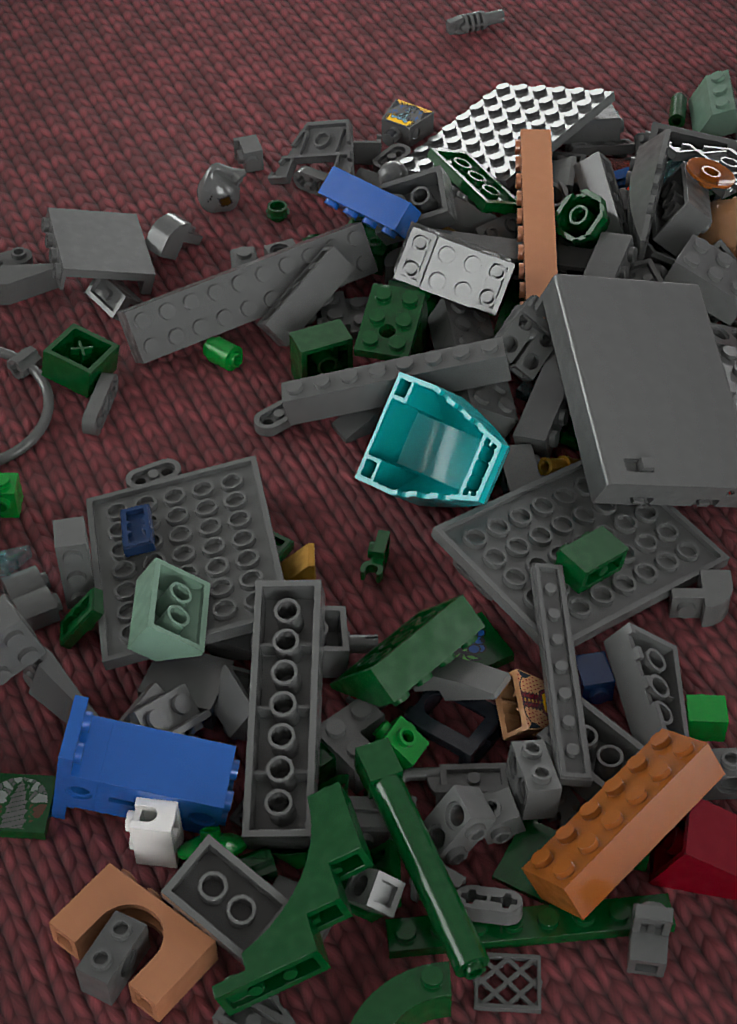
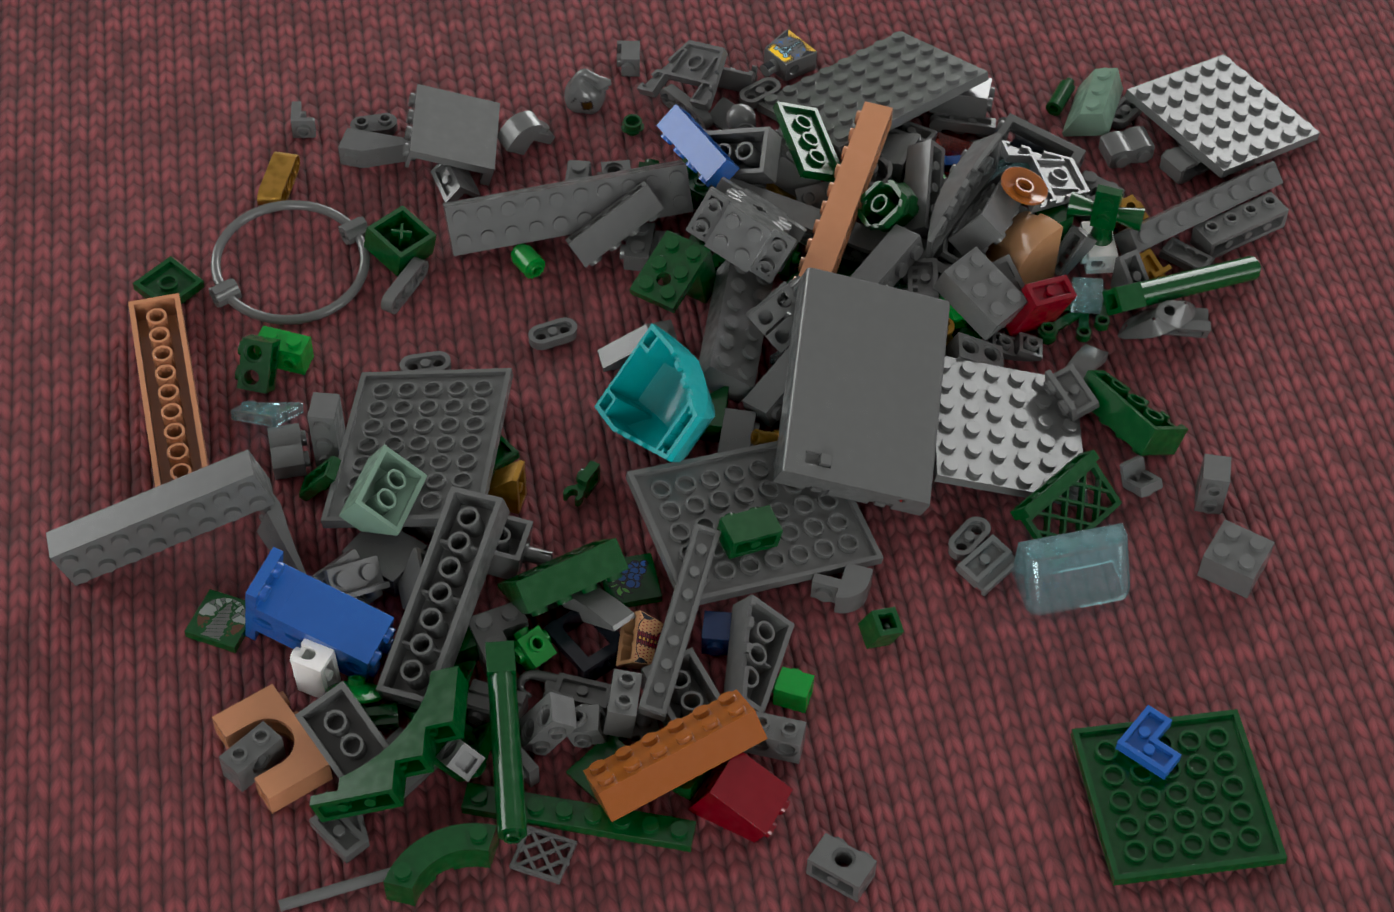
camera: 15 degrees right, 5 degrees up
(137, 530) = (388, 413): dark blue plate -> none
(320, 349) = (607, 284): dark green brick -> none
(371, 384) = (626, 327): dark grey brick -> none
(490, 903) = (548, 792): dark grey beam -> none
(649, 939) = (660, 850): dark grey brick -> none

